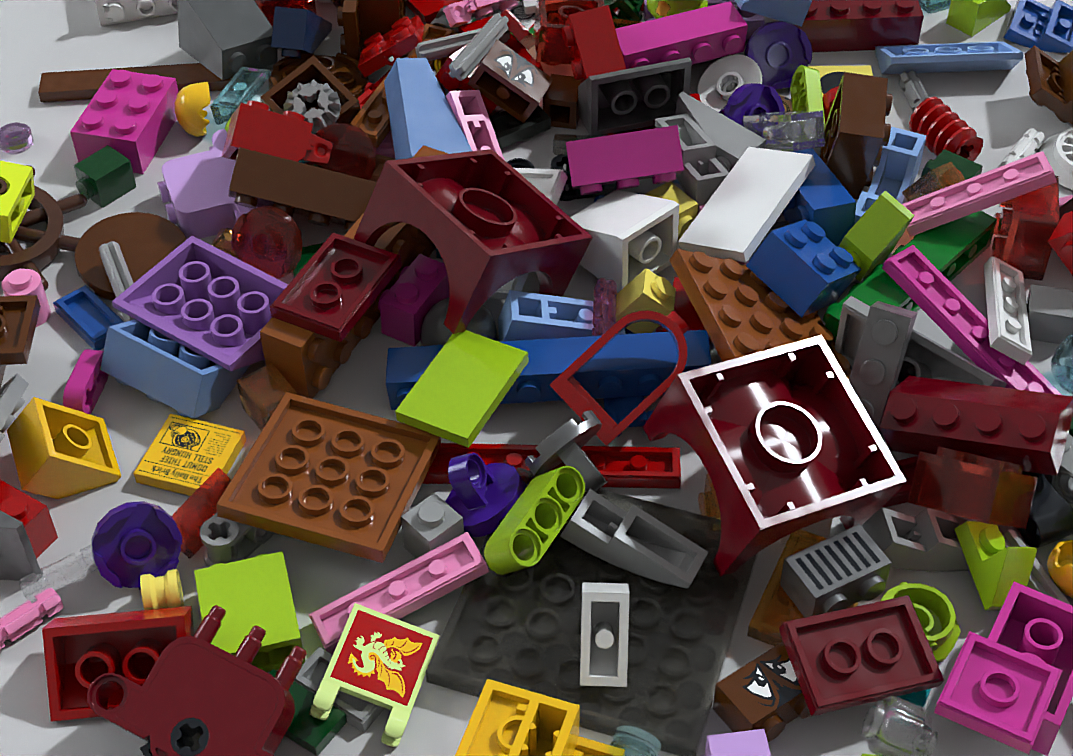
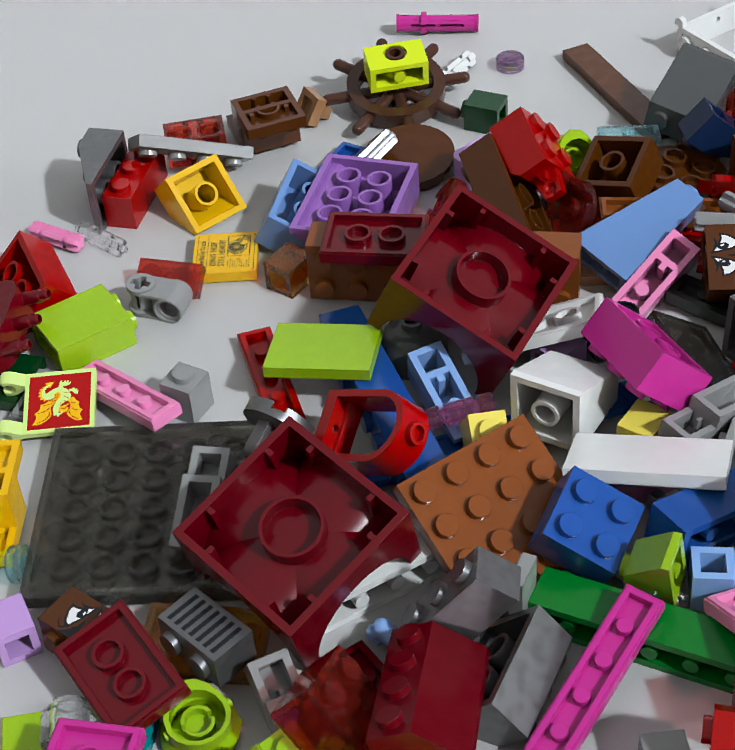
camera: 75 degrees right, 5 degrees down
(27, 283) = (333, 125): bright pink brick -> none
(85, 382) = (268, 182): dark pink beam -> none
(128, 114) = (559, 94): dark pink brick -> none
(135, 542) = (118, 251): dark purple tile -> none
(162, 590) = (89, 274): light yellow wheel -> none
(189, 107) = (587, 117): yellow hair -> none
(327, 101) = (608, 169): light grey gear -> none
(330, 477) = (208, 316): dark orange plate -> none
(482, 492) = (226, 404): dark purple tile -> none
(534, 520) = (181, 425): lime beam -> none
(604, 634) = (103, 502): white slope -> none
(1007, 310) = (625, 716): white tile -> none

